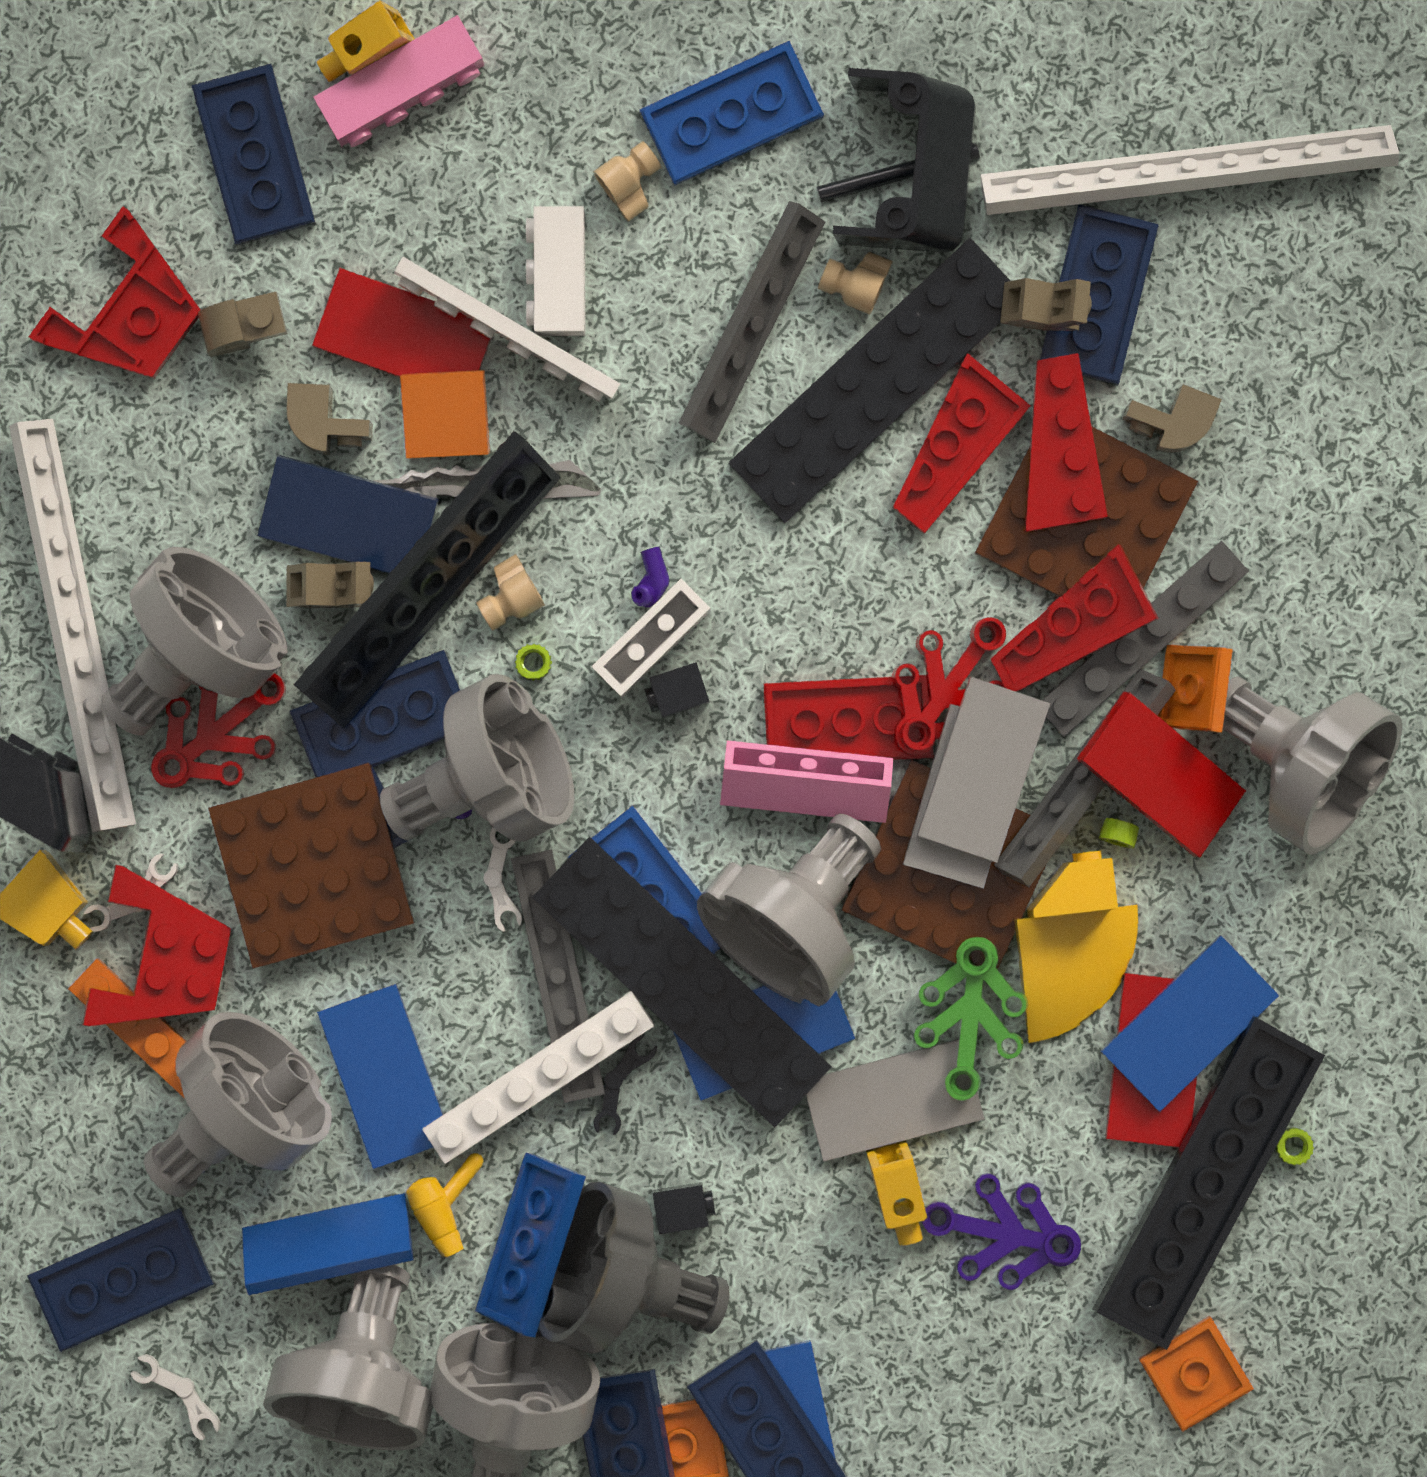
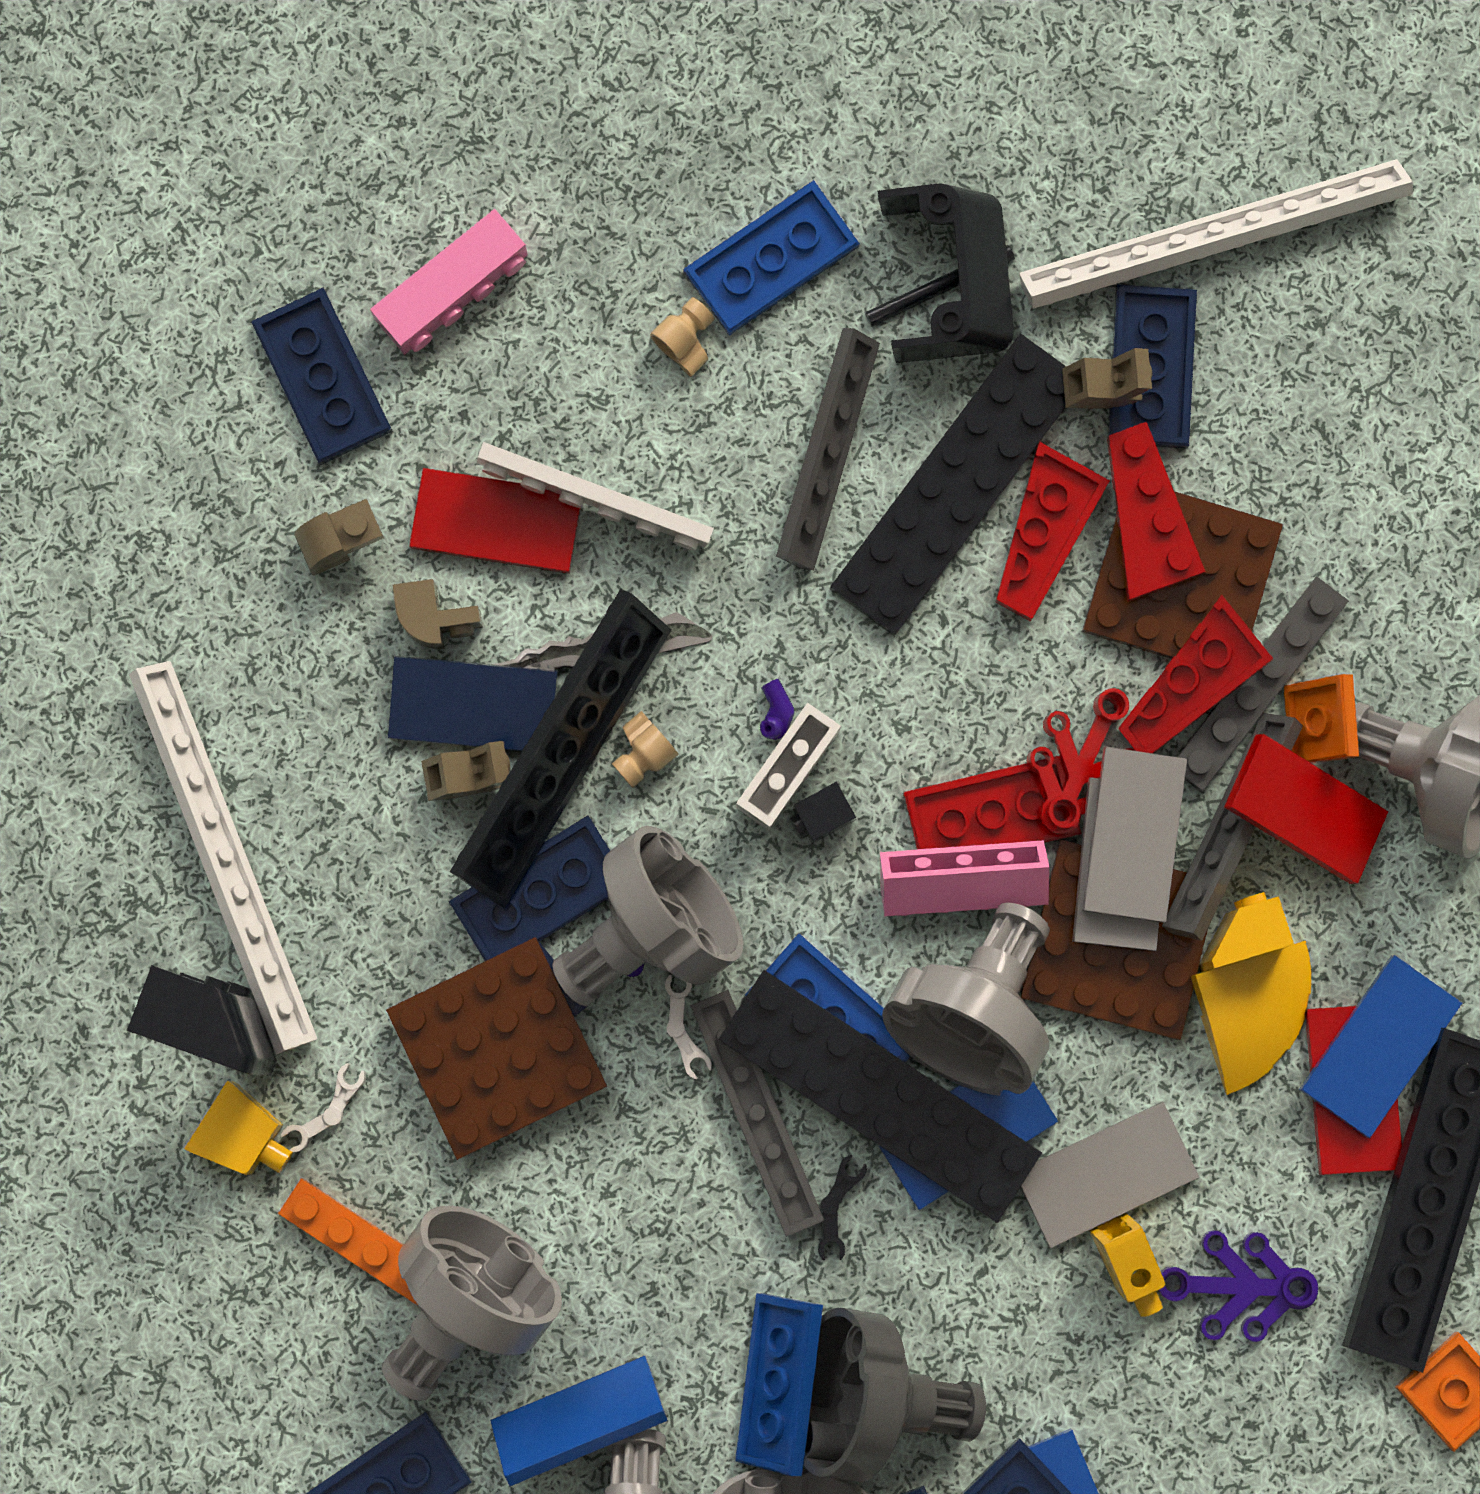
camera: 15 degrees left, 5 degrees down
(141, 318) = (239, 551): red wing -> none
(178, 958) = (381, 1167): red wing -> none
(200, 631) = (348, 838): light grey piece -> none
(211, 736) = (377, 937): red plant -> none
(379, 31) = (416, 234): yellow torso -> none
(382, 1074) = (604, 1243): blue tile -> none
(433, 1204) = (675, 1361): yellow piece -> none
(445, 414) = (549, 588): orange tile -> none
(523, 652) = (678, 798): lime axle -> none
(538, 1077) = (756, 1216): white plate -> none
(557, 271) = (632, 433): white brick -> none
(683, 1207) = (922, 1319): black brick -> none
(858, 286) = (924, 397): tan piece -> none
(971, 1010) = (1168, 1072): bright green plant -> none
(1119, 833) = (1275, 874): lime axle -> none
(1183, 426) = (1259, 473): dark tan brick -> none

